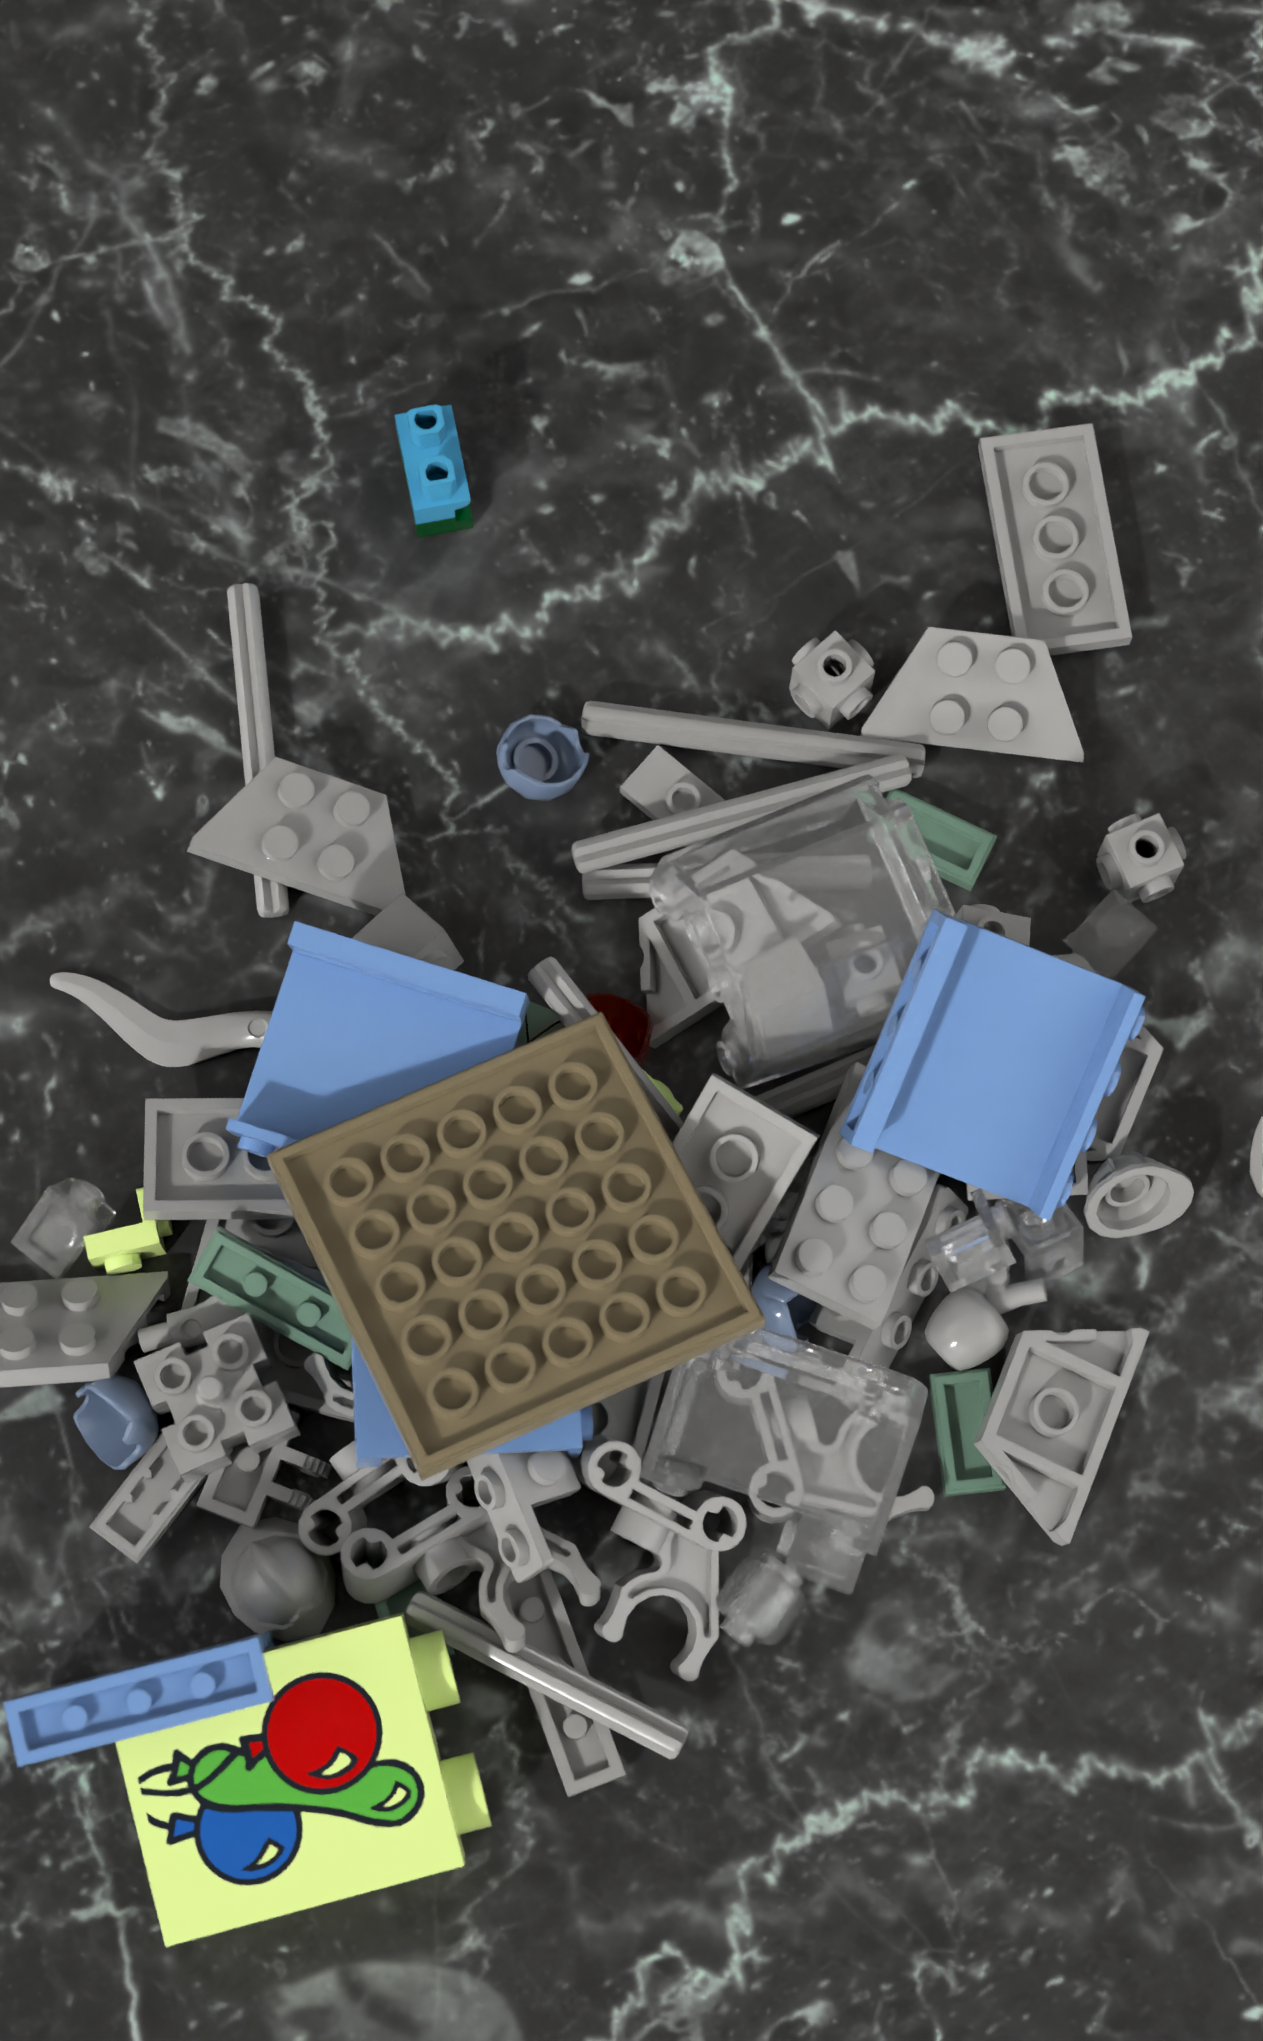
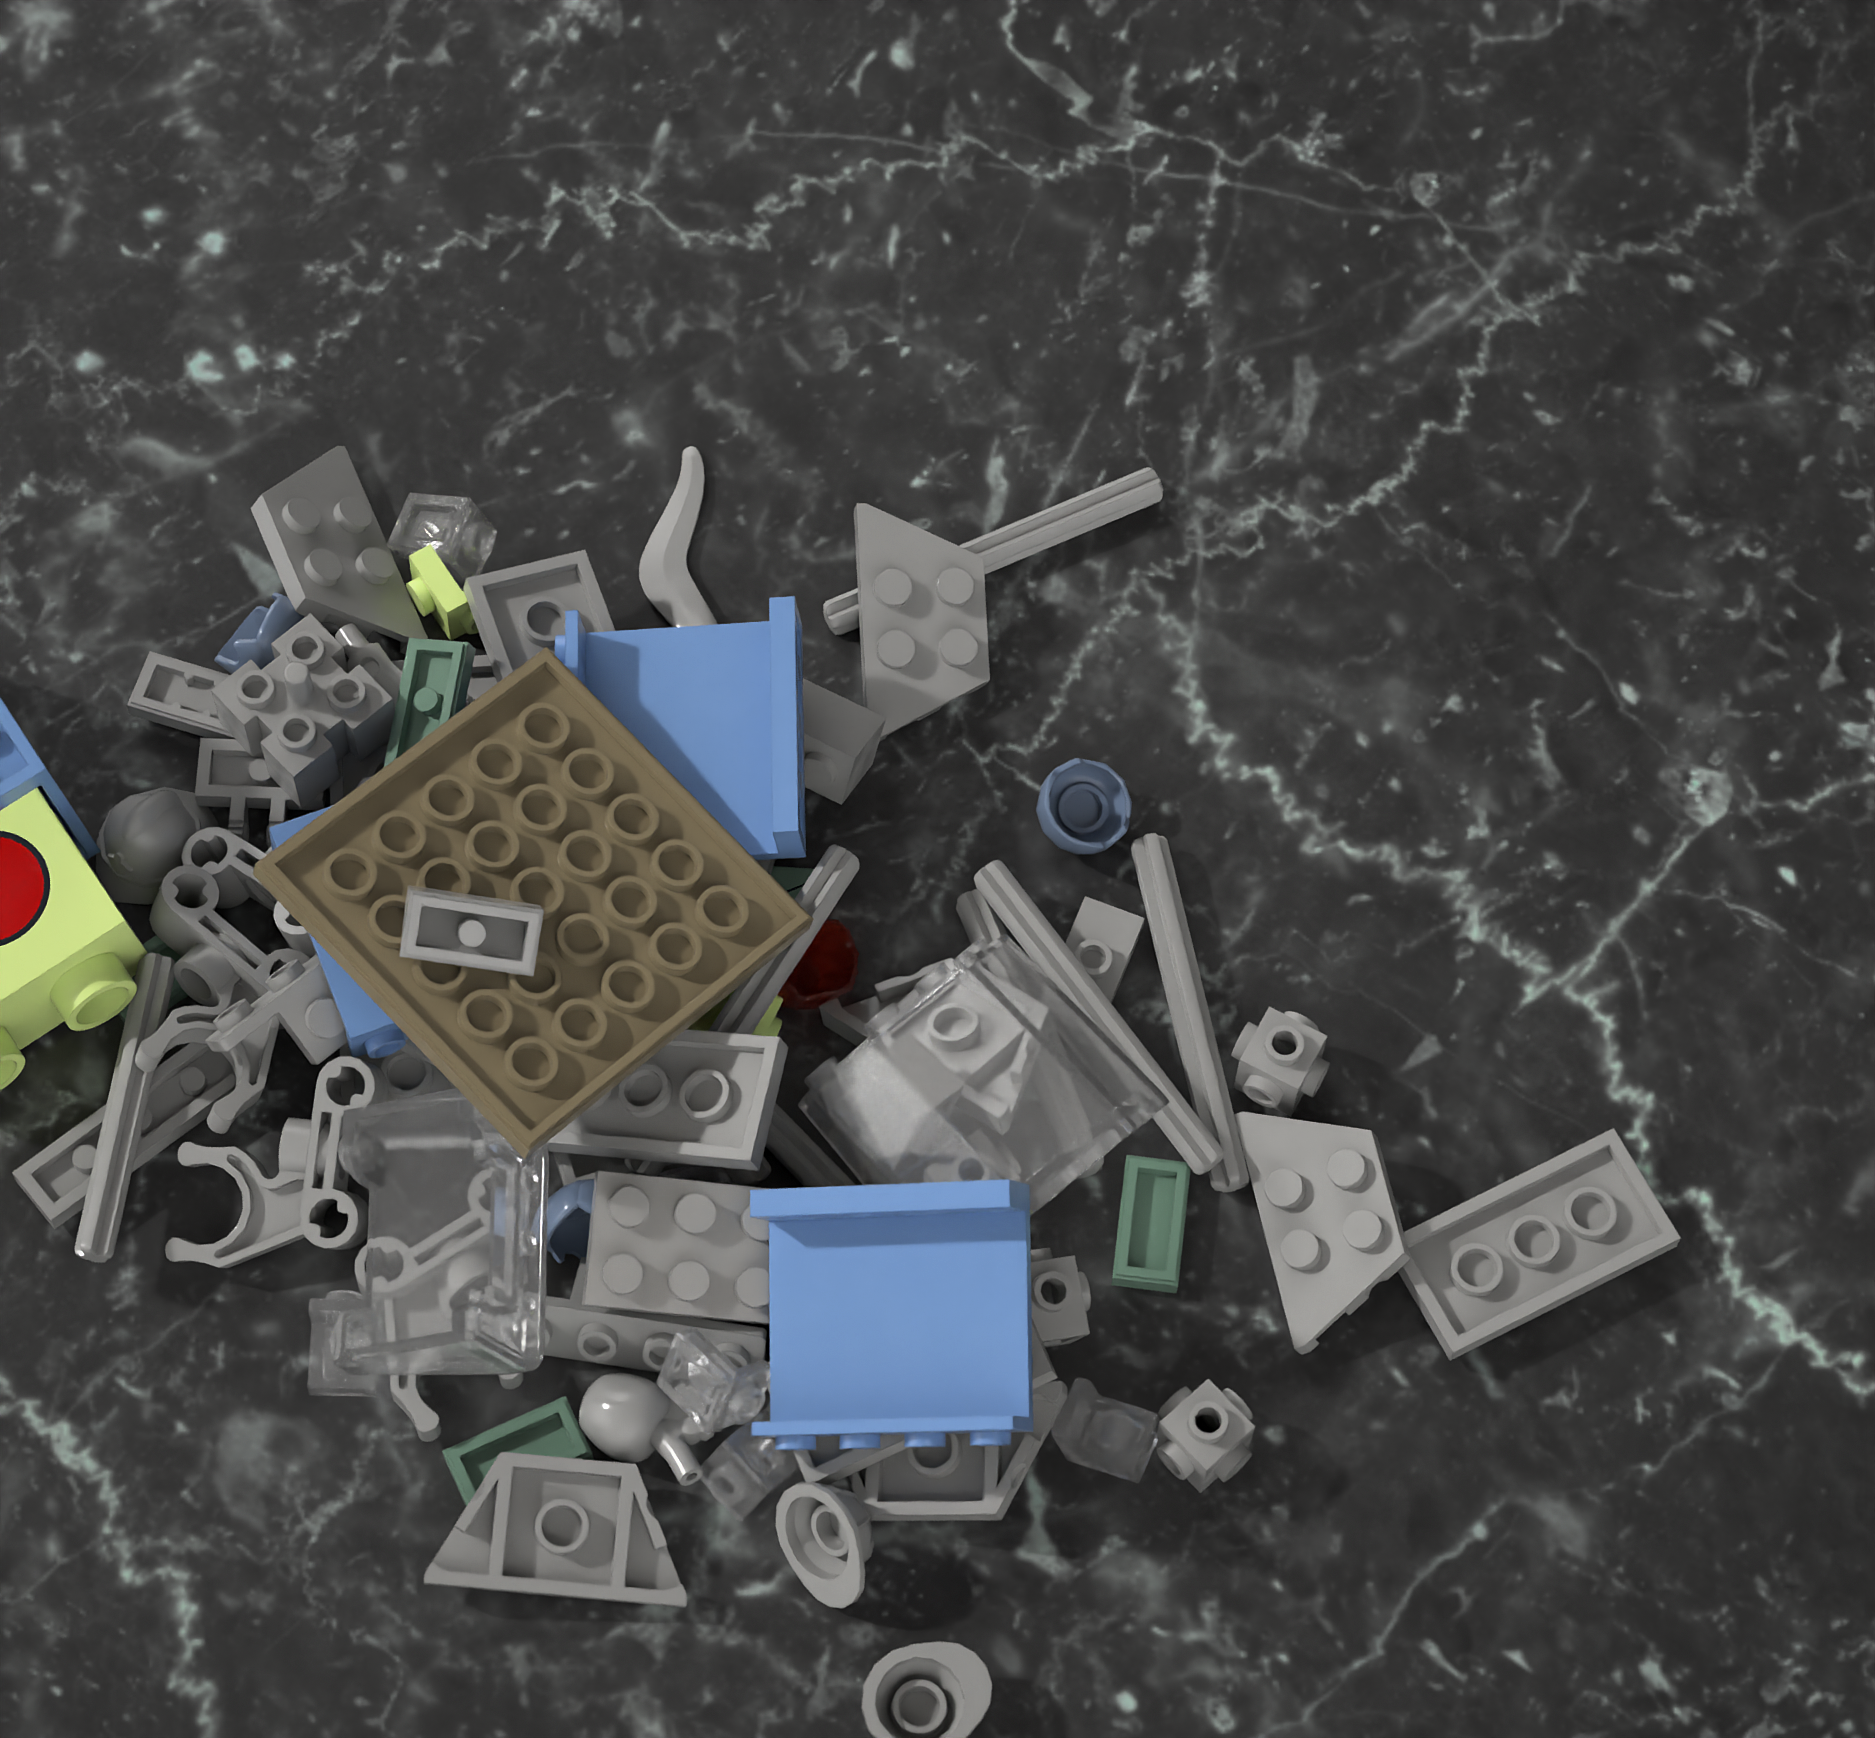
camera: 70 degrees right, 10 degrees down
(434, 470) = (1348, 610): dark azure hips -> none
(542, 1302) = (471, 930): none -> light grey slope
(760, 1601) = (267, 1294): clear head -> none

